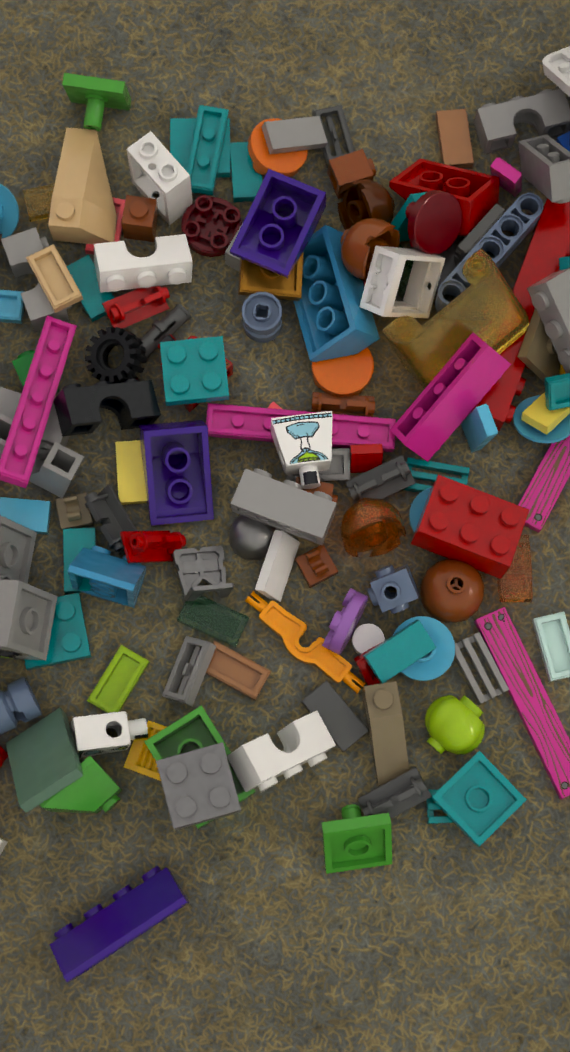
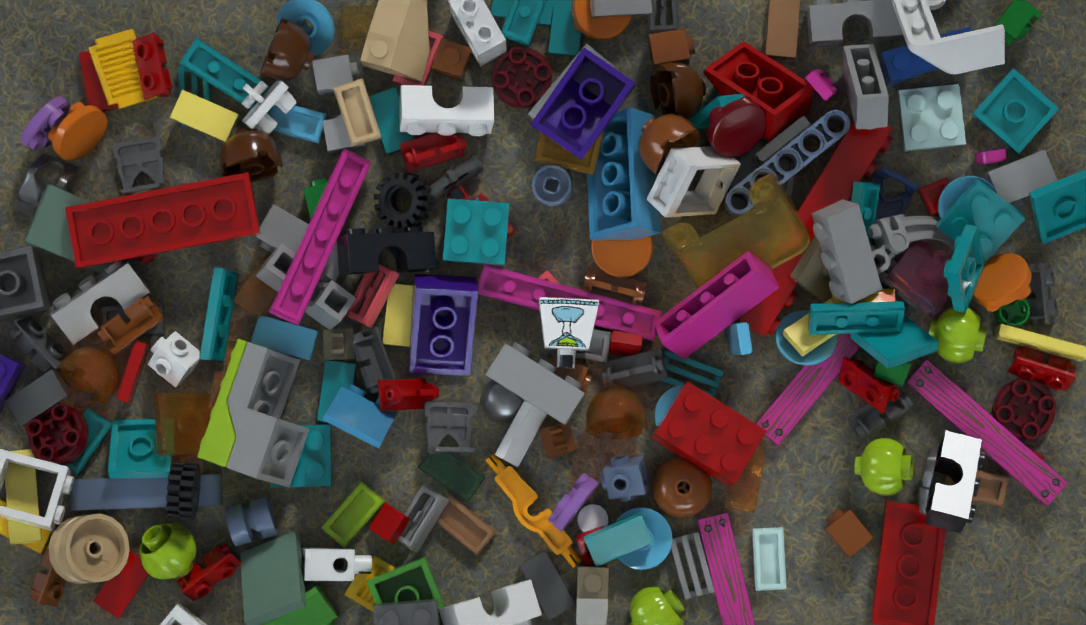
camera: 15 degrees right, 10 degrees up
(102, 456) = (375, 295): none -> coral tile
(158, 682) = (389, 523): none -> red tile

